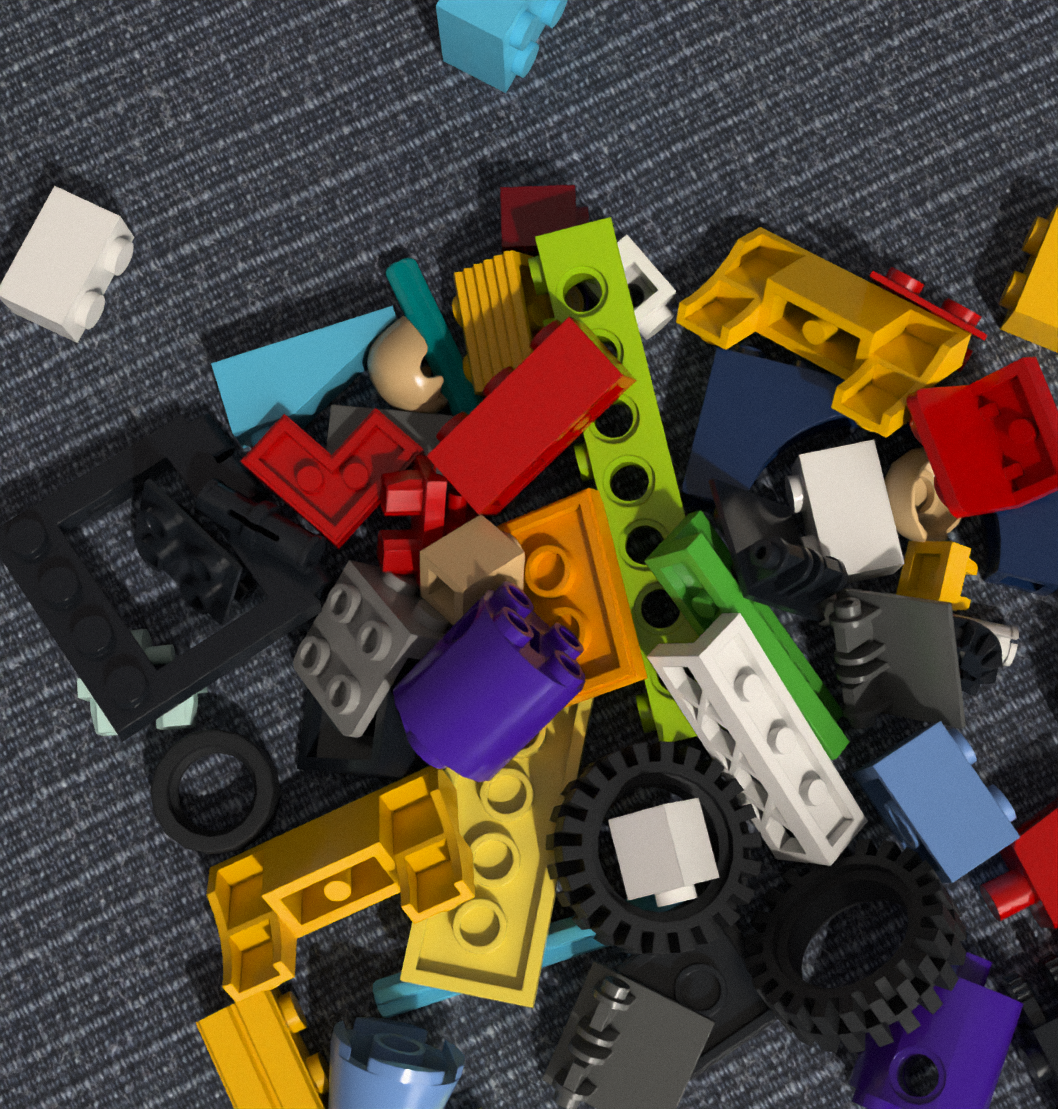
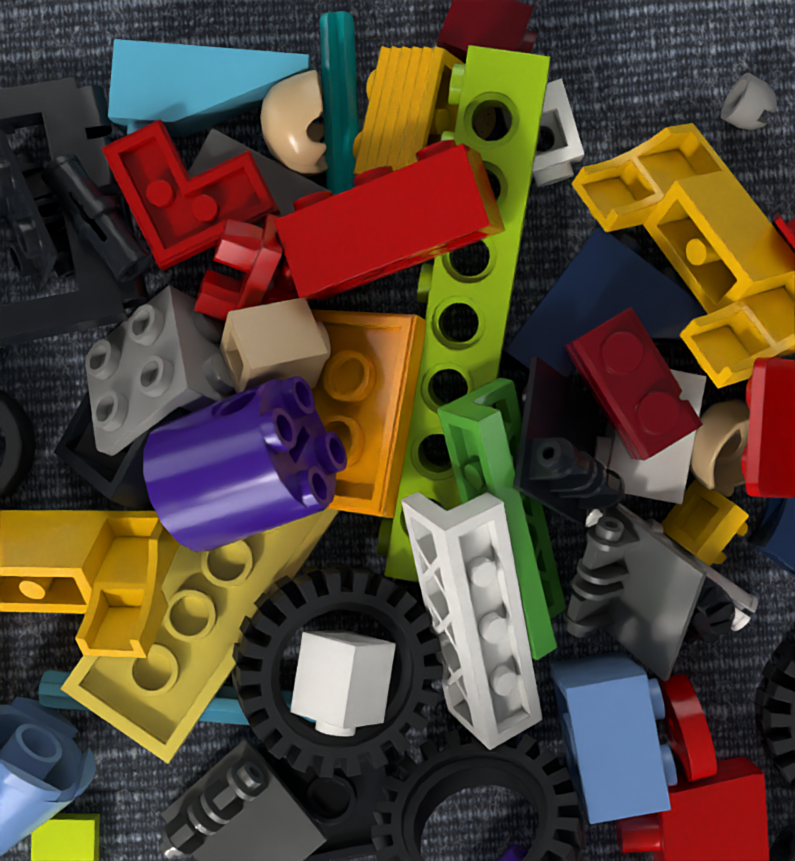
camera: 15 degrees right, 10 degrees up
(801, 188) = (747, 102): none -> light grey hinge
(808, 469) = (633, 385): none -> dark red brick
(1008, 769) = (687, 728): none -> red piece

